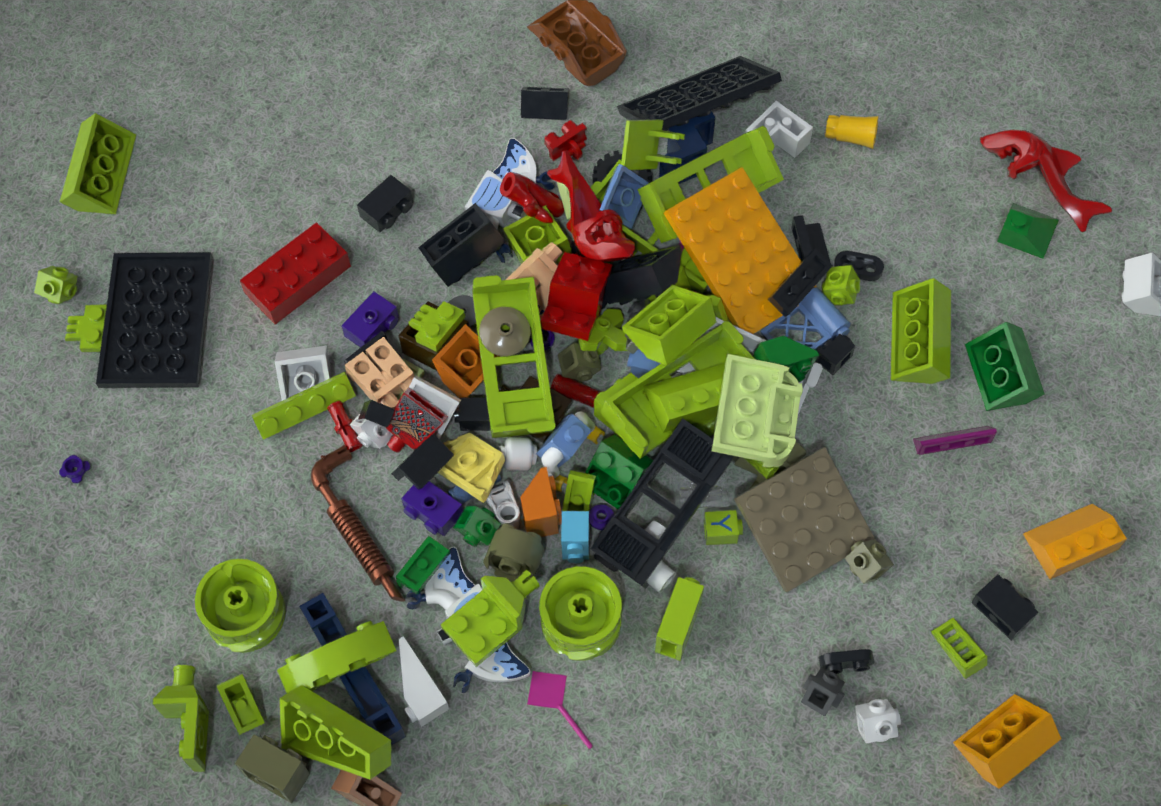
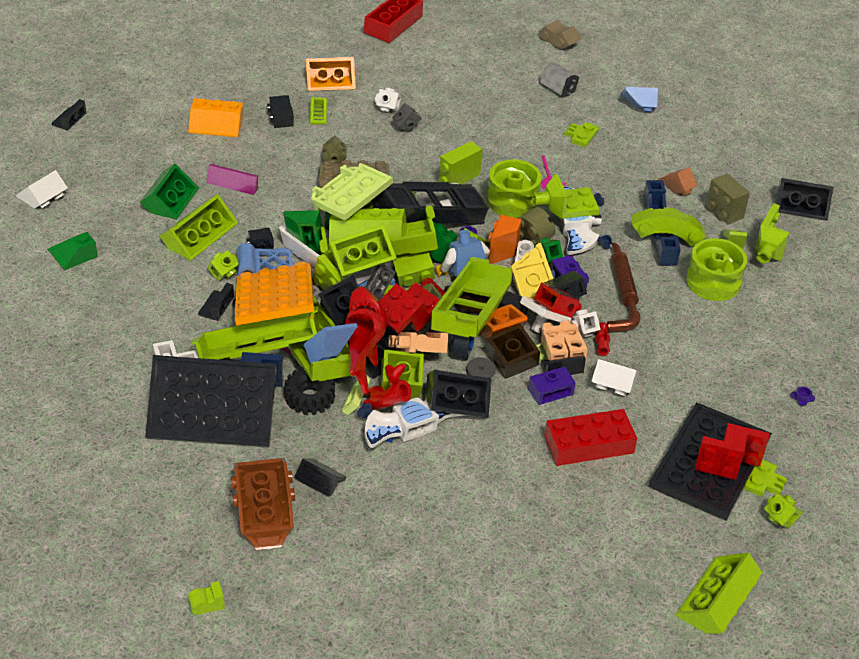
camera: 155 degrees left, 20 degrees down
(126, 302) = (738, 446): none -> red bracket
(303, 405) = (633, 357): lime plate -> none
(331, 735) = (687, 188): lime wedge -> none
(376, 413) = (583, 304): black slope -> none
(385, 204) = (495, 455): black brick -> none
(420, 691) = (624, 202): white slope -> none
(422, 565) = (594, 248): green panel -> none
(436, 325) = (510, 341): lime hinge -> none
(504, 343) = (471, 308): dark tan dish -> none
(571, 141) = (328, 433): red hips -> none
(575, 536) = (489, 214): medium azure brick -> none
(642, 143) = (287, 356): lime plate -> none
(800, 282) = (251, 267): black plate -> none
(837, 661) = (382, 126): black plate -> none
(853, 129) = (119, 345): yellow plant -> none
(860, 263) = (201, 279): black plate -> none
(1053, 163) = (26, 274): red piece -> none

